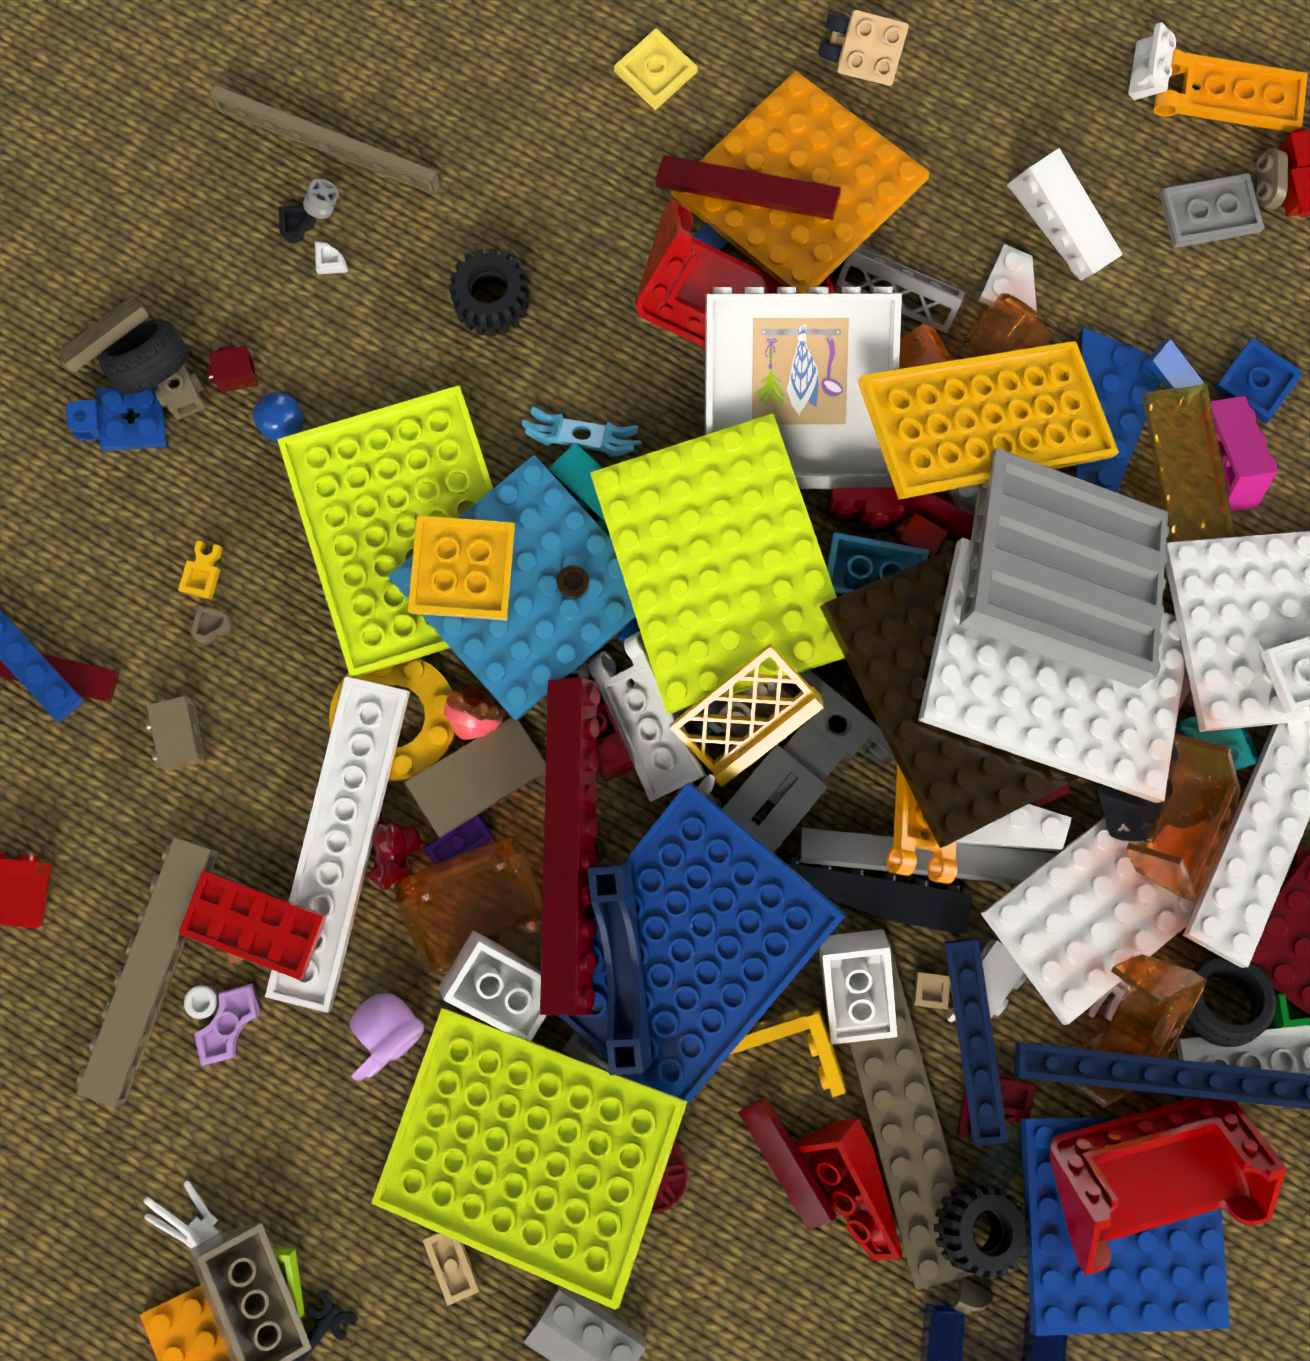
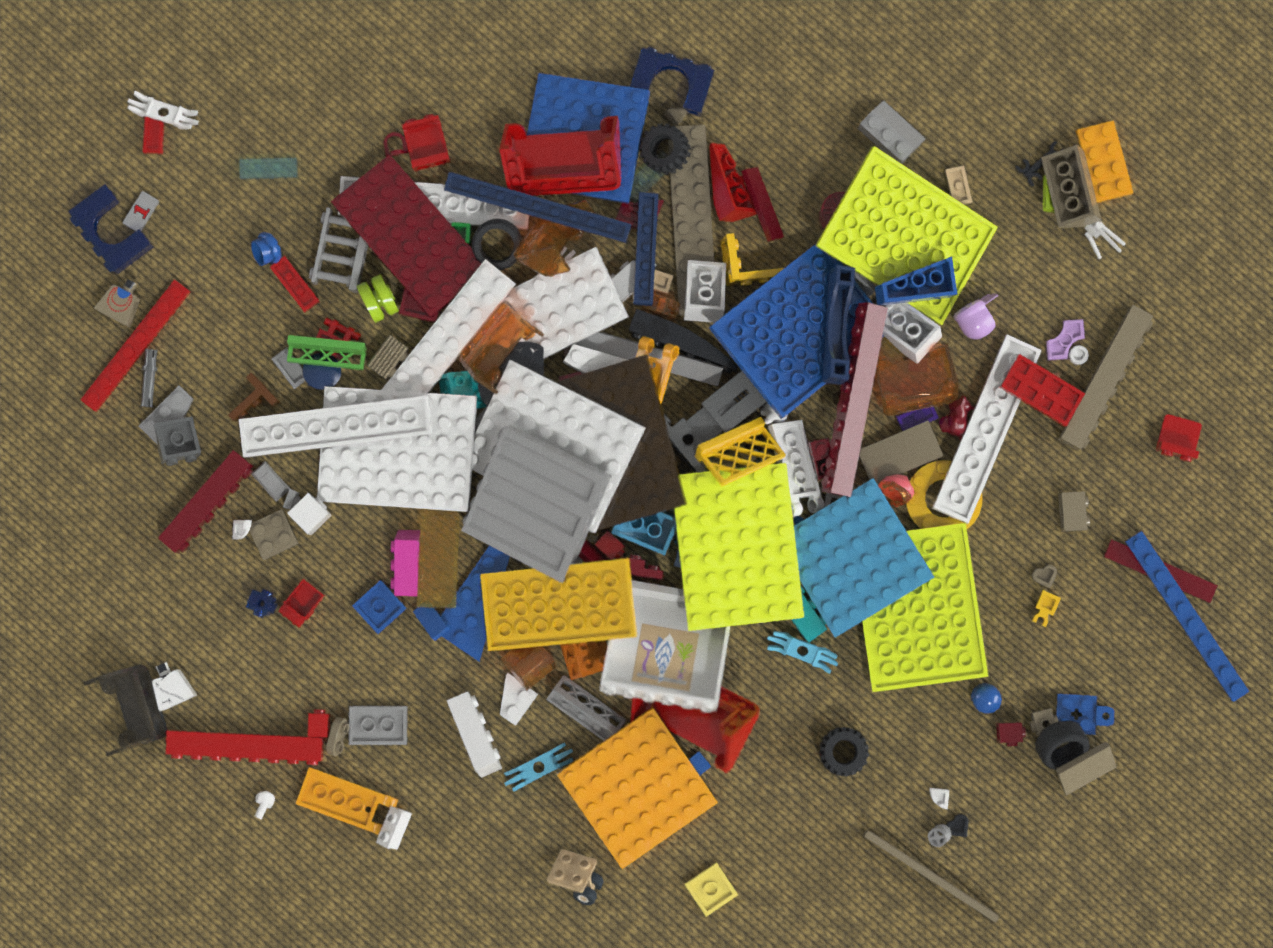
camera: 170 degrees left, 5 degrees up
(461, 568) = (890, 571): yellow plate -> none
(482, 1071) = (924, 284): none -> blue wedge
(573, 582) = (825, 552): dark brown tile -> none
(748, 187) = (671, 787): dark red tile -> none
(920, 949) = (663, 306): none -> clear orange leg
(941, 204) = (550, 764): none -> medium azure piece

